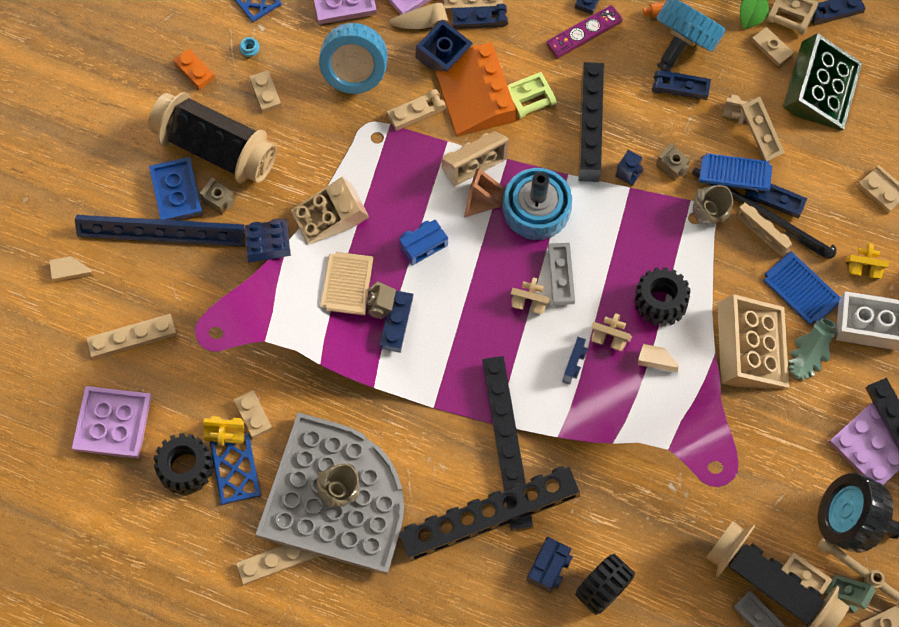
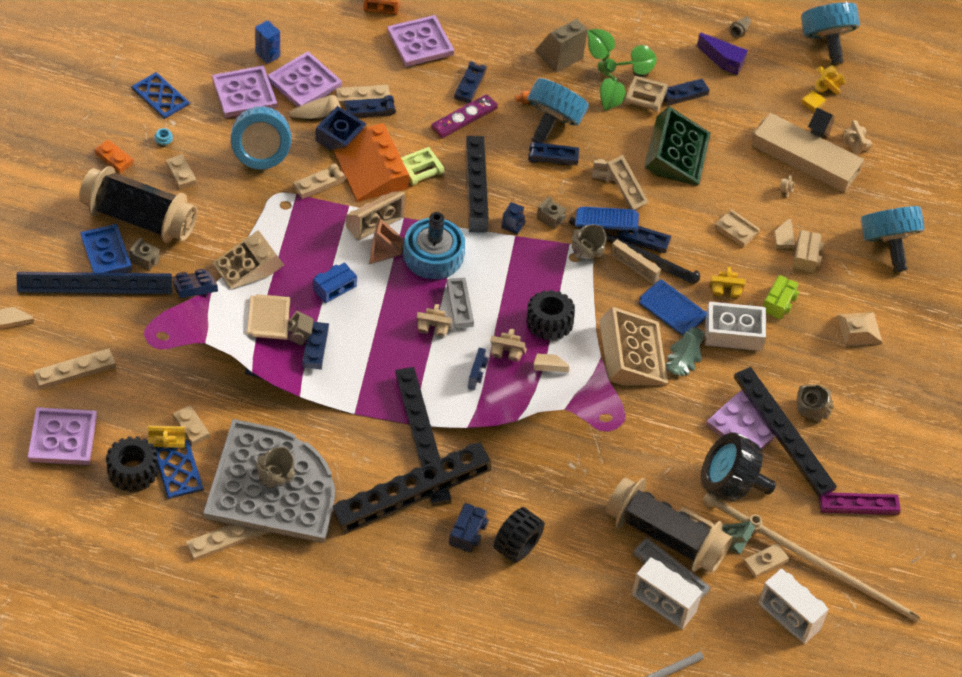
camera: 10 degrees left, 15 degrees down
(772, 47) = (631, 122): tan plate -> none

